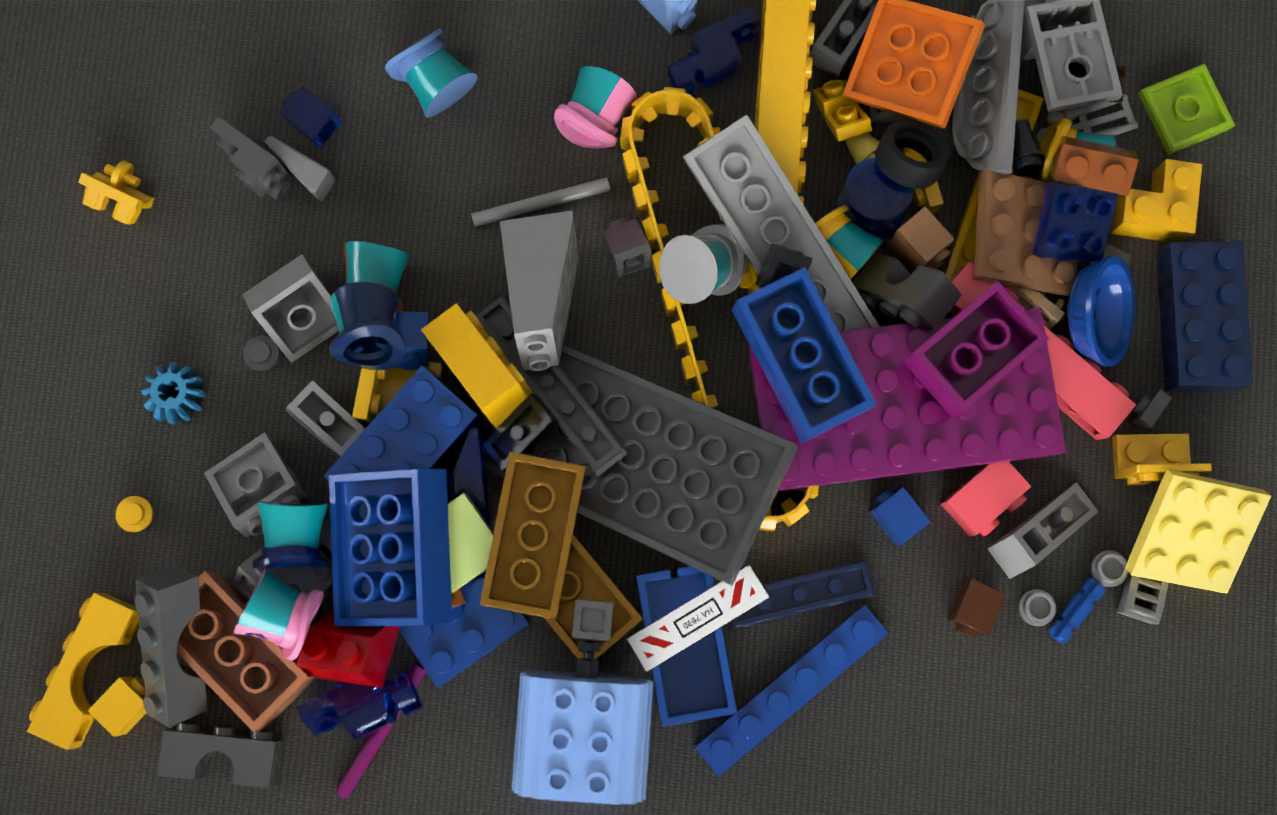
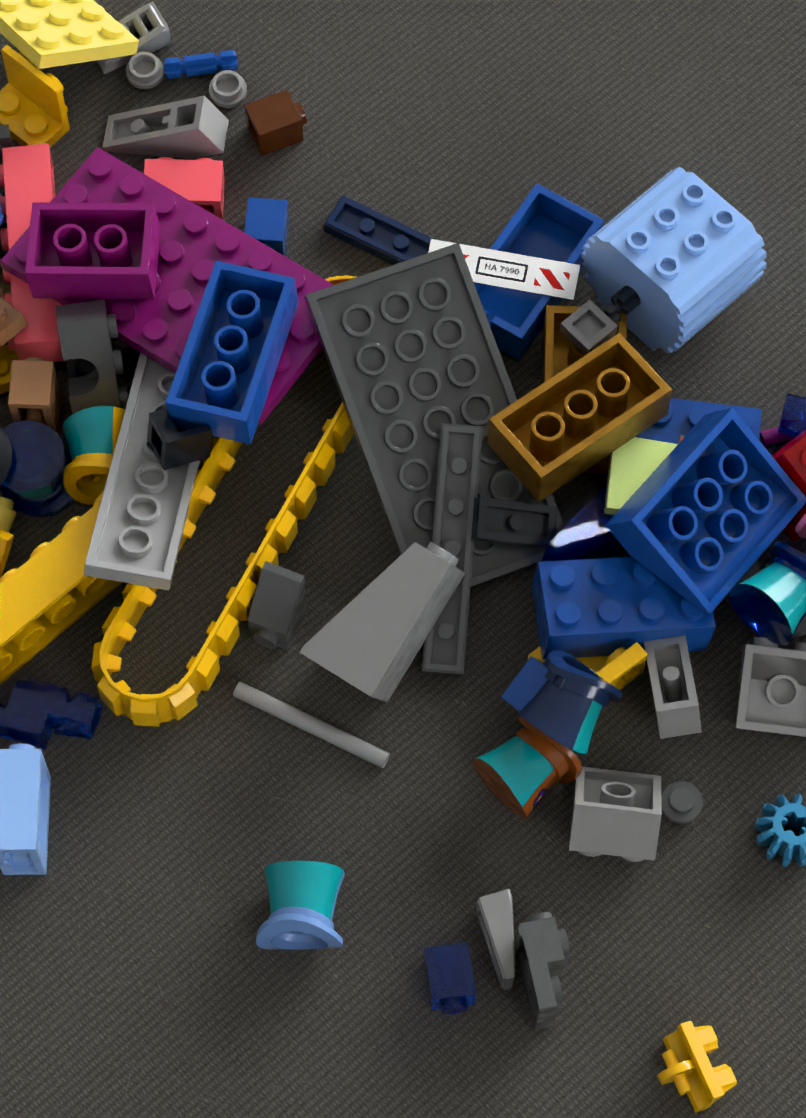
camera: 140 degrees left, 15 degrees down
(478, 363) = (499, 601): yellow brick -> none
(595, 108) = (189, 744): bright pink hat -> none
(702, 264) = (234, 514): light grey hat -> none
(791, 690) = (466, 184): blue plate -> none

